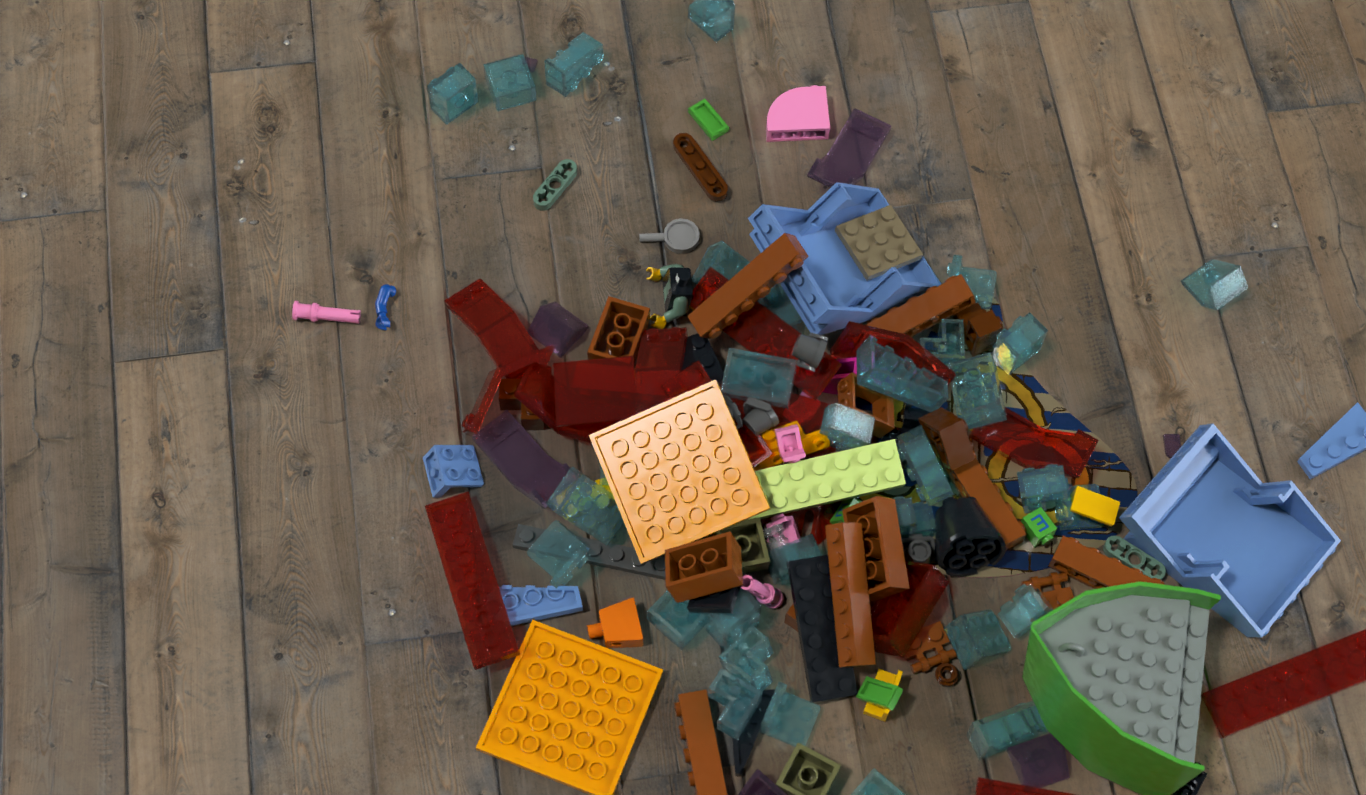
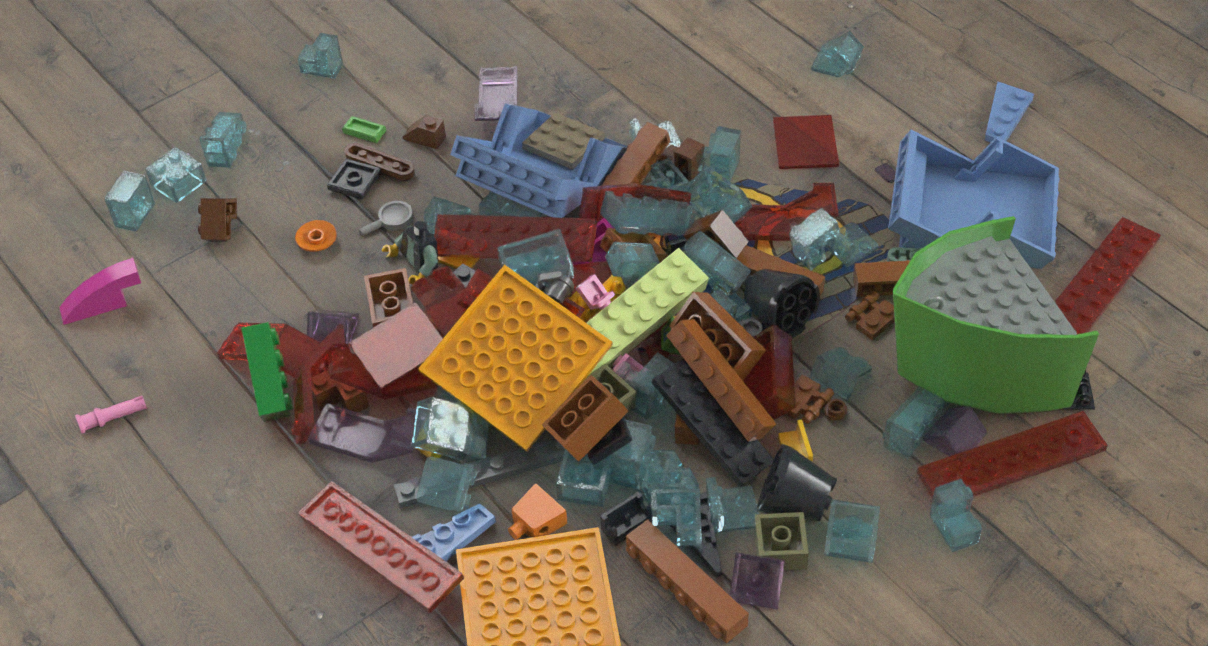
camera: 25 degrees left, 15 degrees down
(379, 182) = (100, 292): none -> dark pink slope
(384, 293) = (157, 373): blue arm -> none
(452, 467) = (300, 471): medium blue bracket -> none
(467, 355) = (266, 372): none -> green brick
(518, 152) = (216, 218): none -> reddish brown brick
(556, 175) = (264, 236): sand green beam -> none
(596, 214) = (316, 235): none -> orange dish
(666, 174) = (354, 179): none -> black plate
(691, 674) = (625, 518): none -> black hinge
(748, 286) = (482, 202): dark orange brick -> none
(762, 156) = (427, 132): none -> reddish brown slope
(764, 592) = (640, 416): bright pink pin -> none
(799, 115) = (439, 92): bright pink brick -> none
(809, 350) = (566, 218): dark grey piece -> none
(852, 735) = (796, 486): none -> black cone
(879, 693) = (802, 441): bright green tile -> none
(1027, 607) = (868, 322): clear light blue brick -> none
(1039, 527) = (832, 269): bright green brick -> none
(1094, 506) = (863, 230): yellow panel -> none
(1117, 365) = (805, 142): none -> clear red piece

